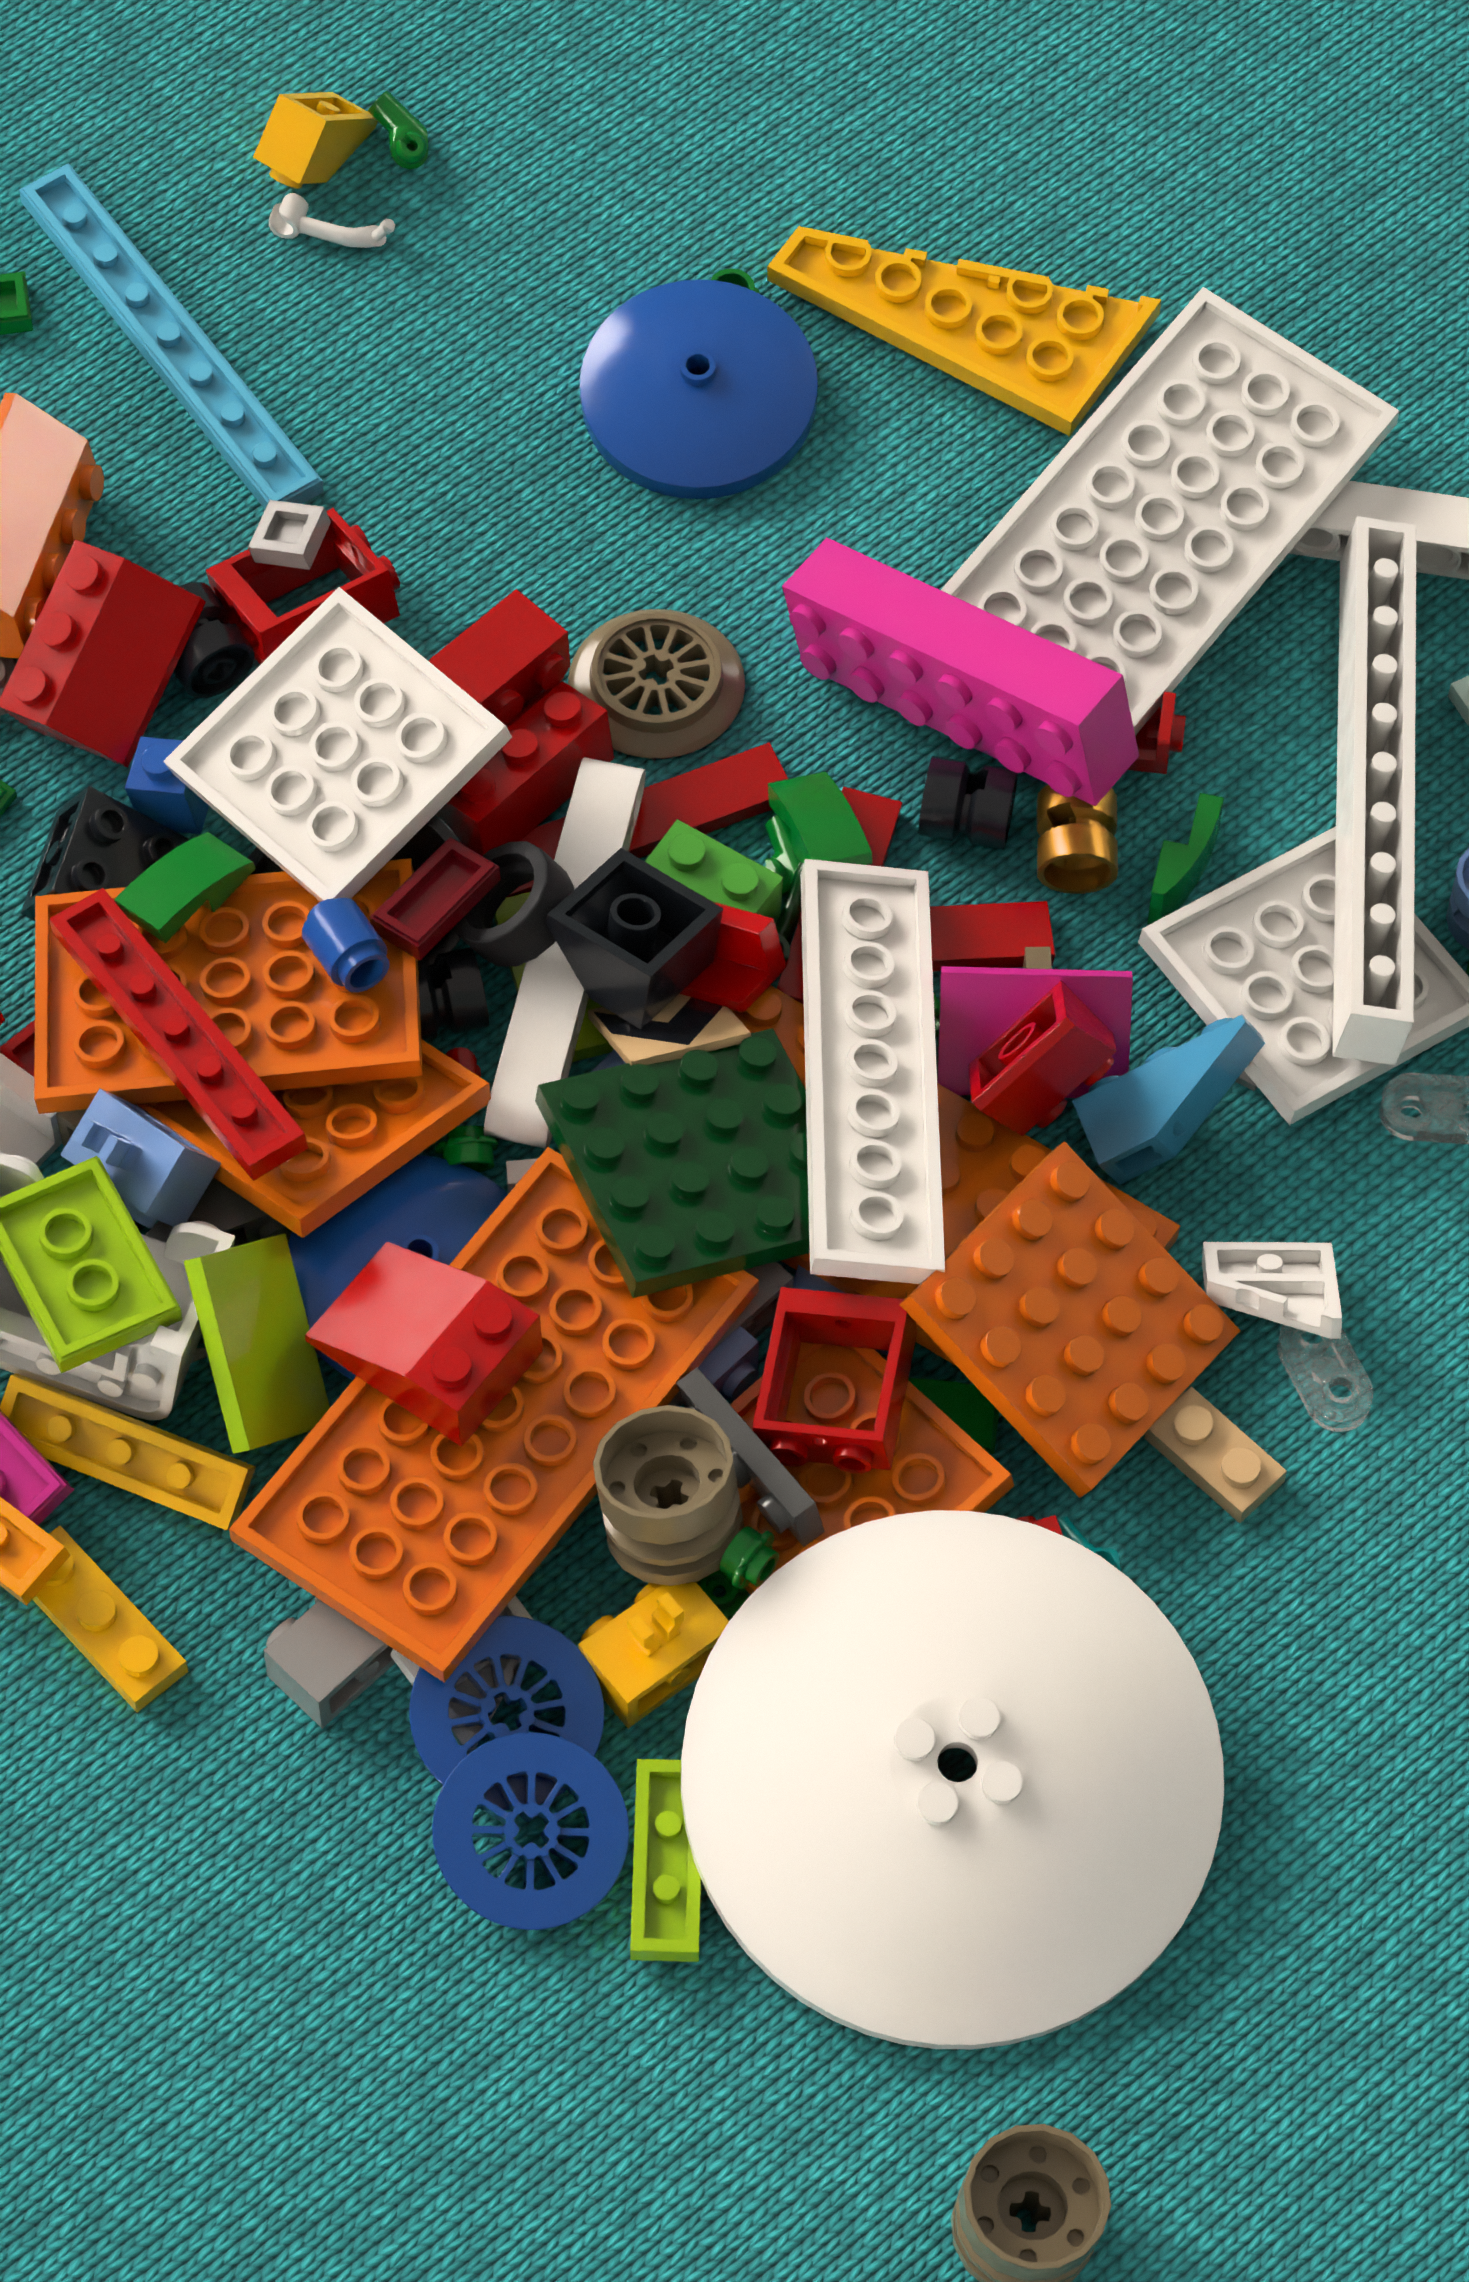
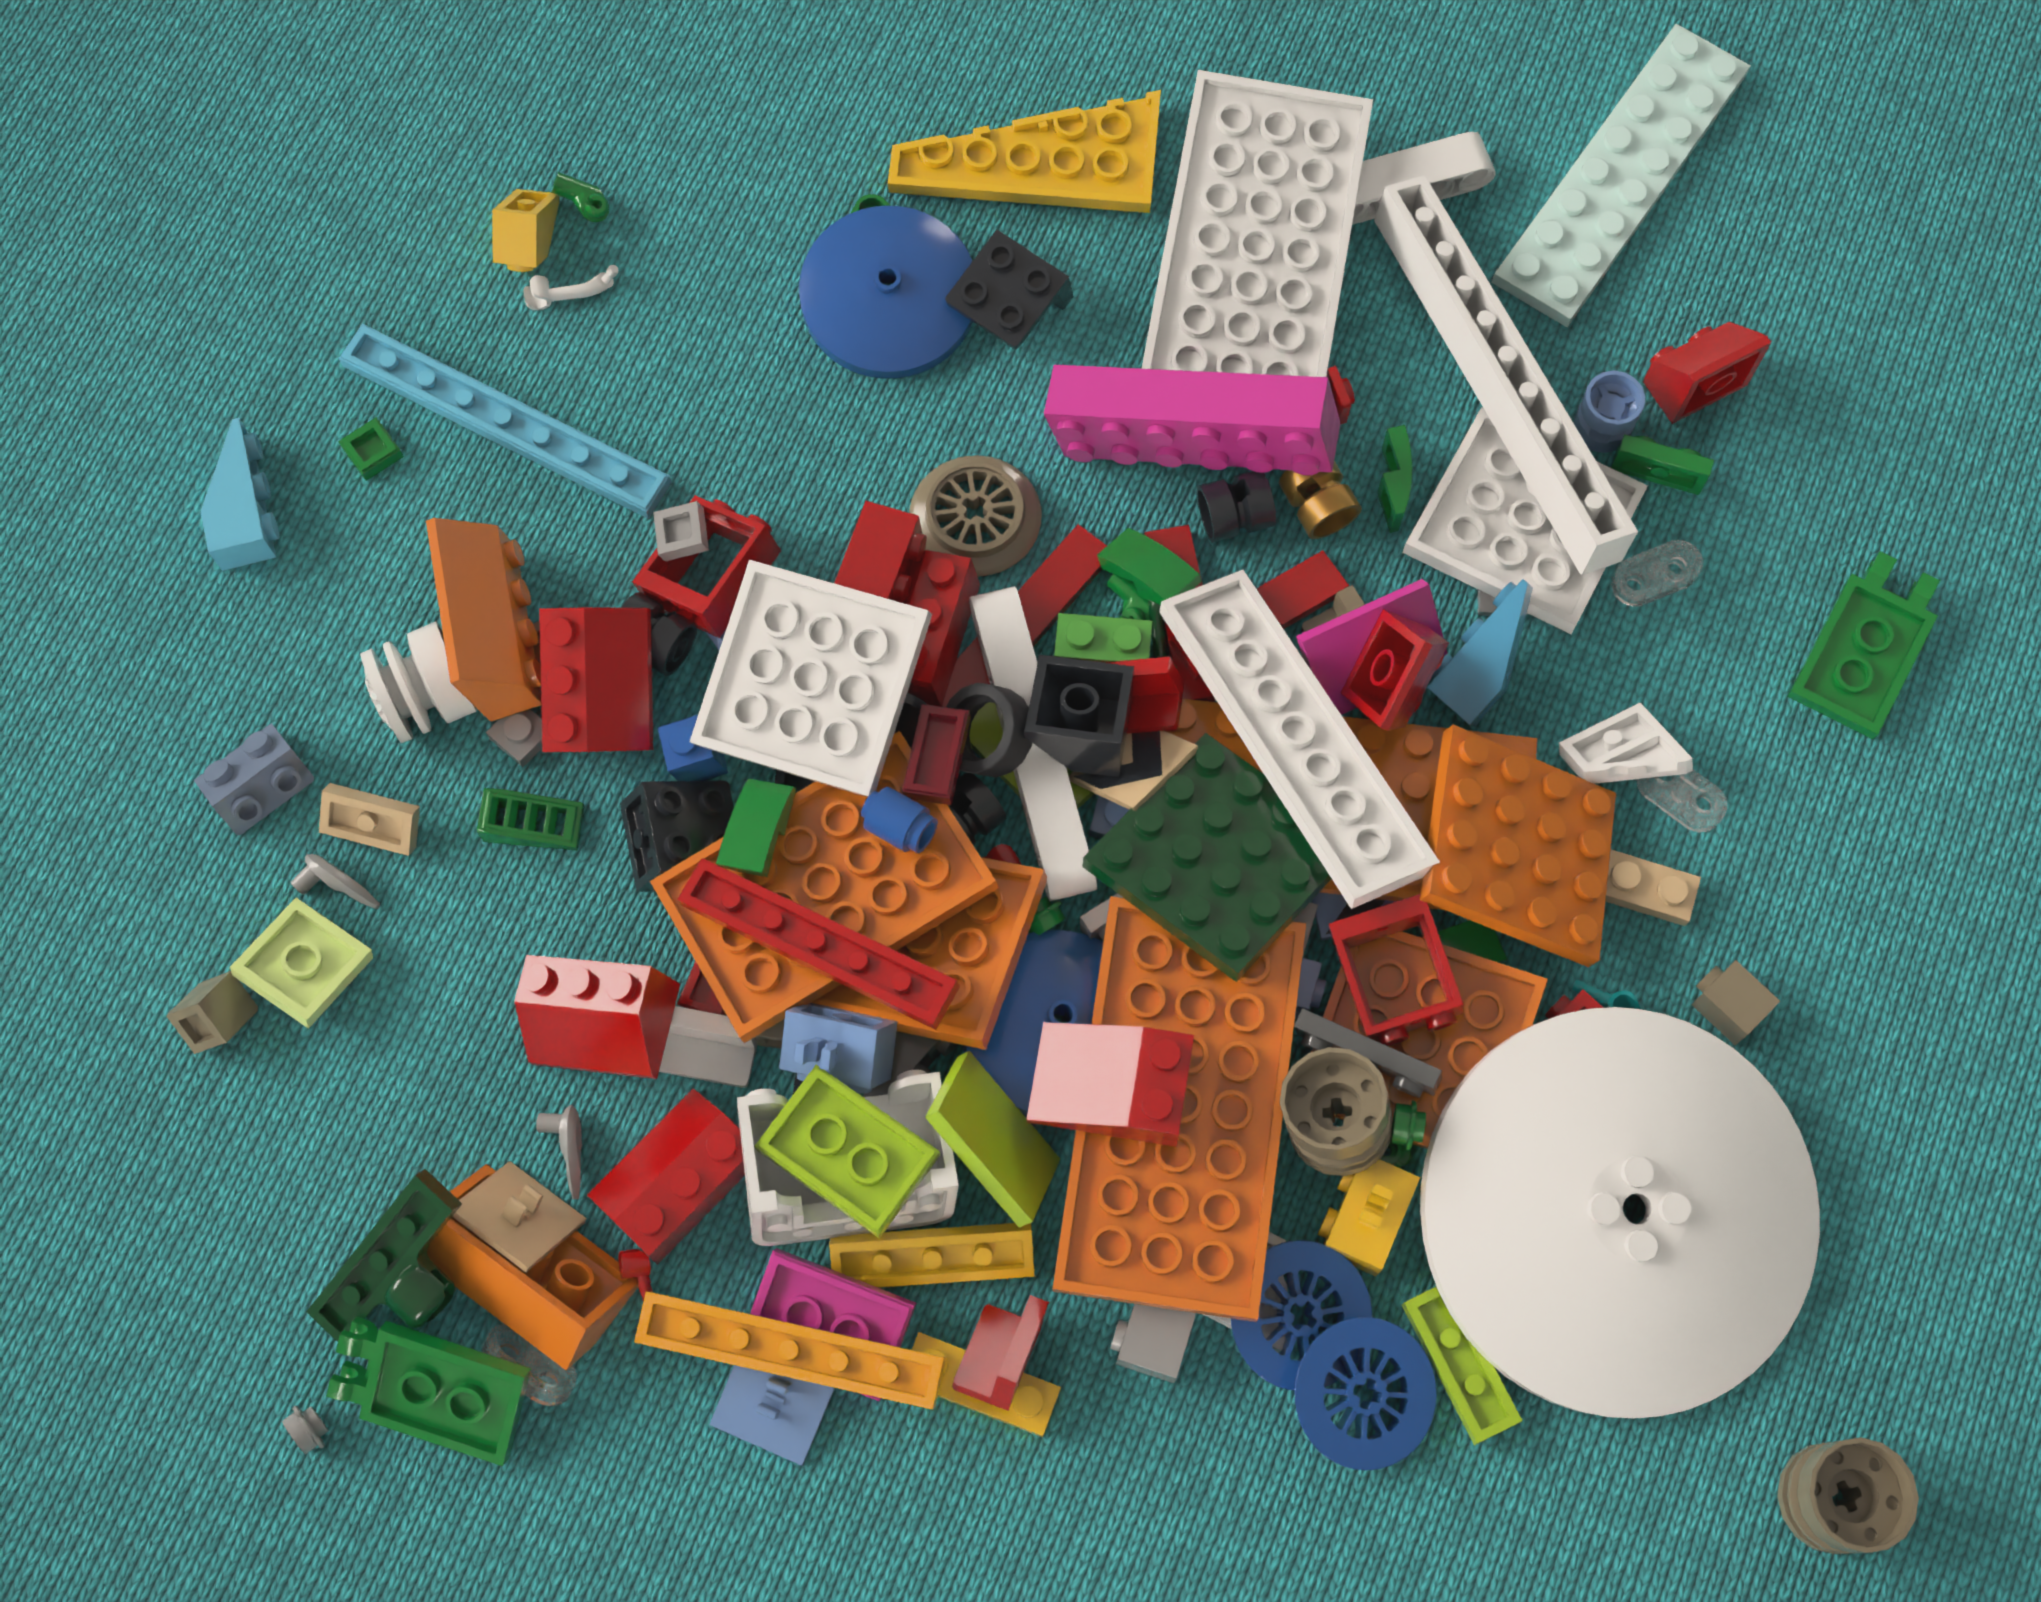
camera: 25 degrees left, 10 degrees up
(140, 1586) = (999, 1353): none -> panel
(838, 443) = (1008, 290): none -> black bracket
(1239, 1624) = (1734, 1001): none -> dark tan brick

